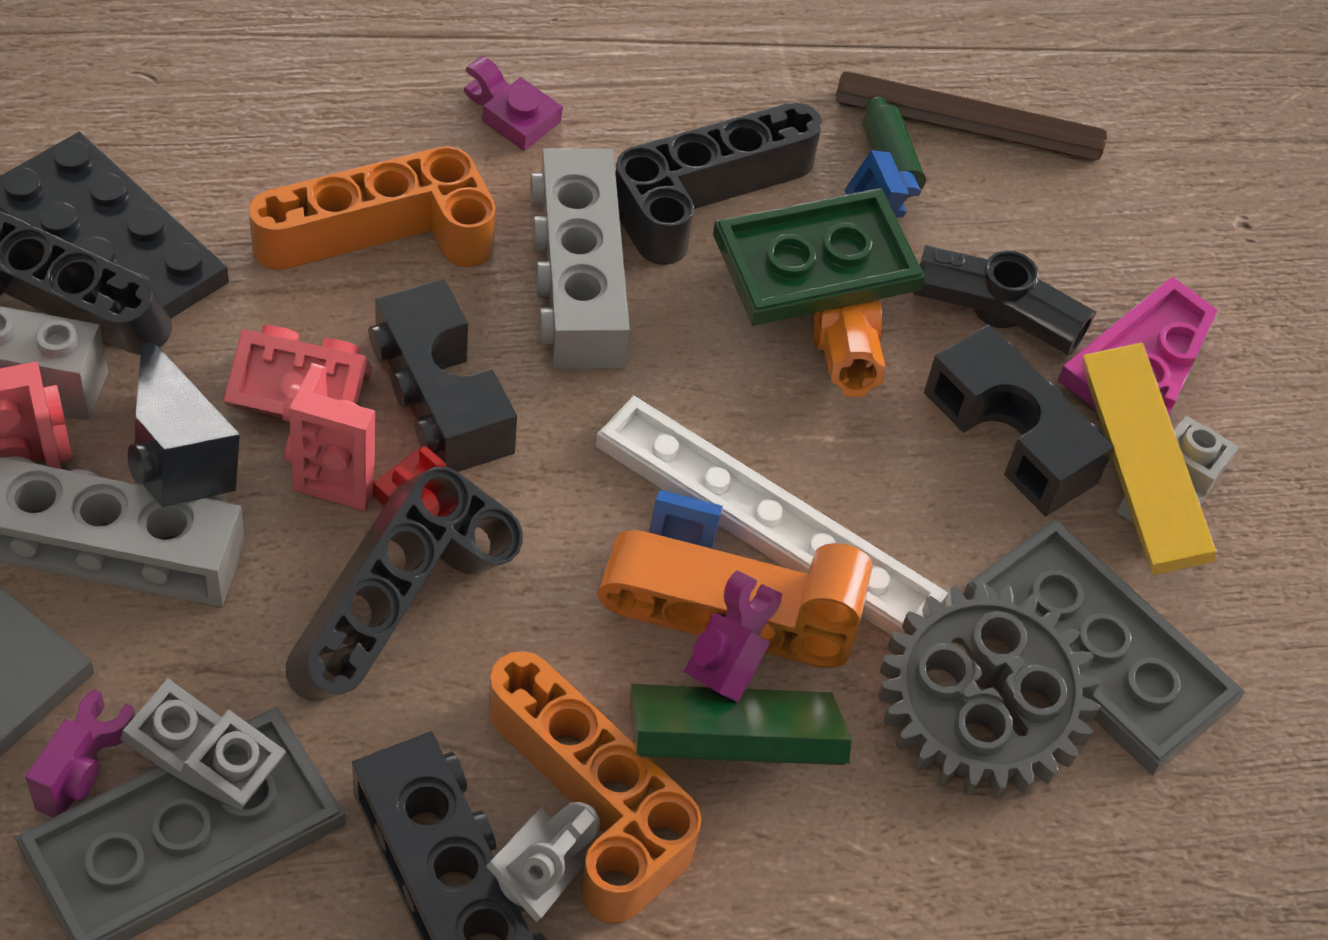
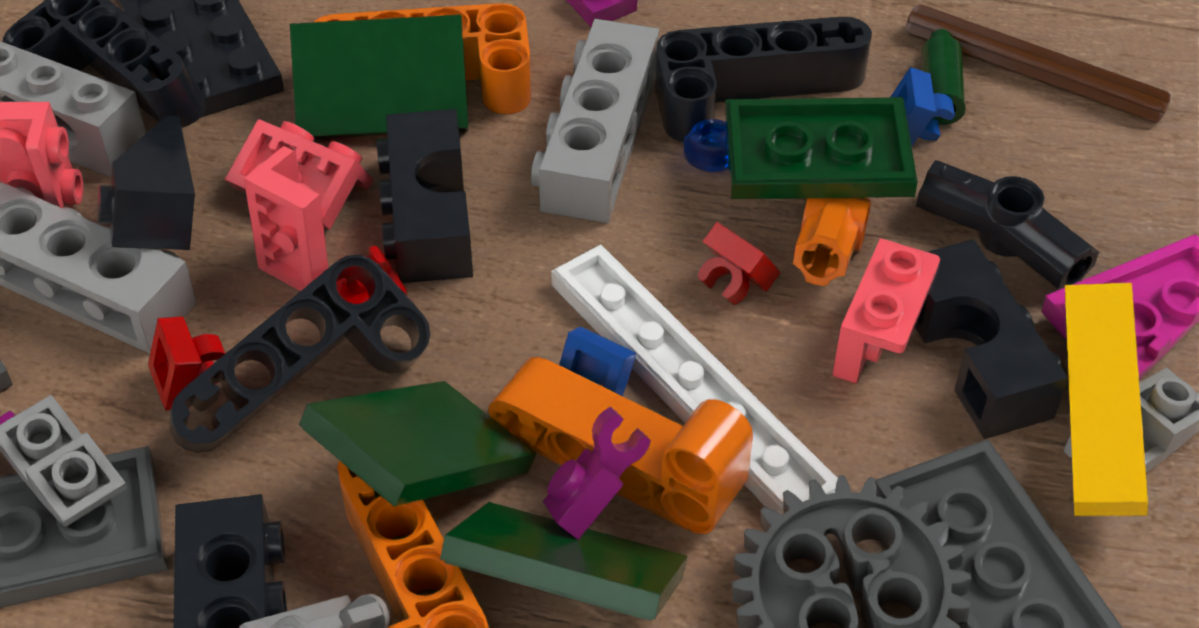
camera: 25 degrees right, 5 degrees down
(271, 611) = (179, 358): none -> red tile
(340, 252) = (364, 69): none -> dark green tile
(557, 642) = (416, 441): none -> dark green tile
(699, 266) = (707, 146): none -> clear blue plate
(774, 385) = (740, 260): none -> red tile
(929, 409) = (884, 306): none -> coral bracket

